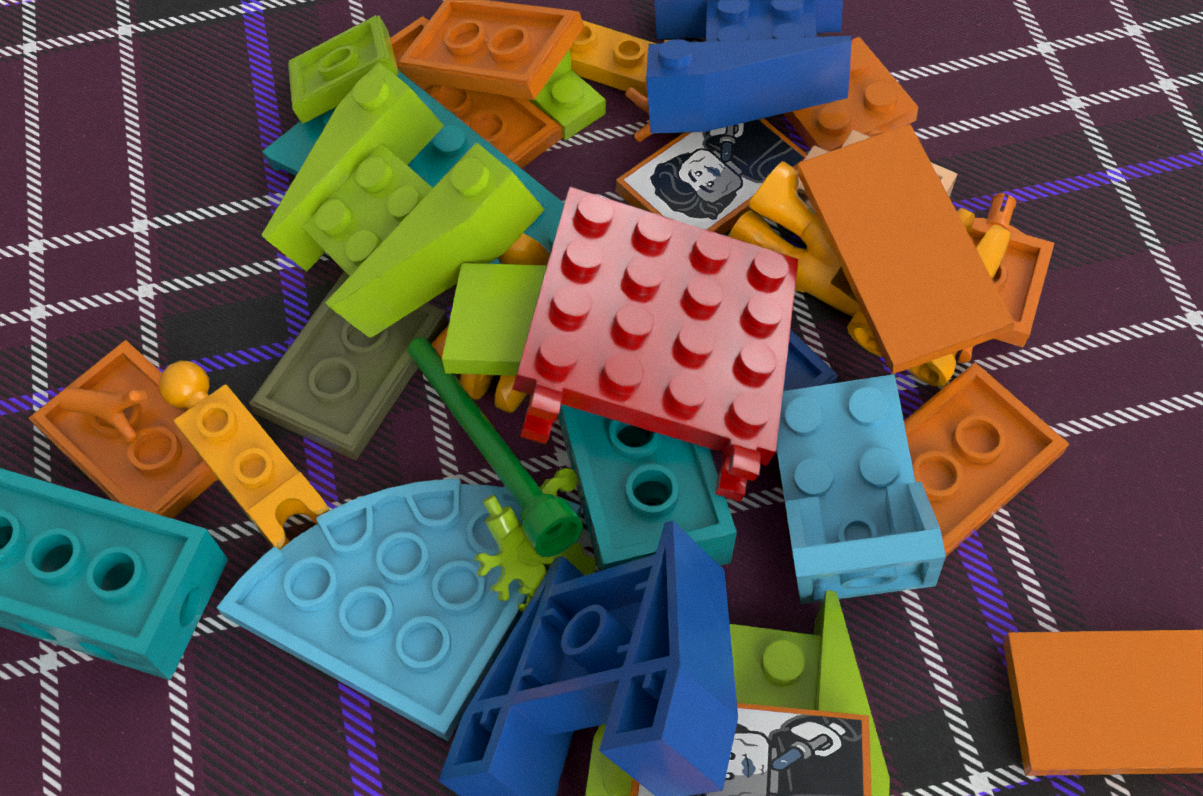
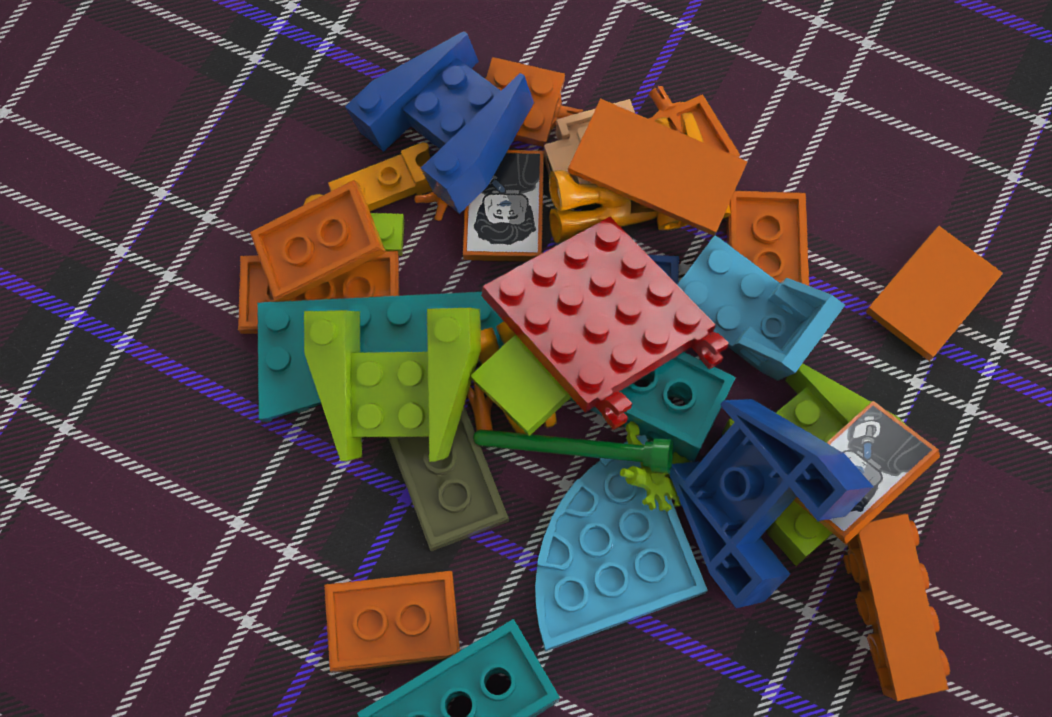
camera: 50 degrees left, 10 degrees up
(104, 405) = (370, 621): orange bar -> none
(239, 452) = (463, 574): light orange plate -> none
(333, 68) = (249, 331): lime tile -> none

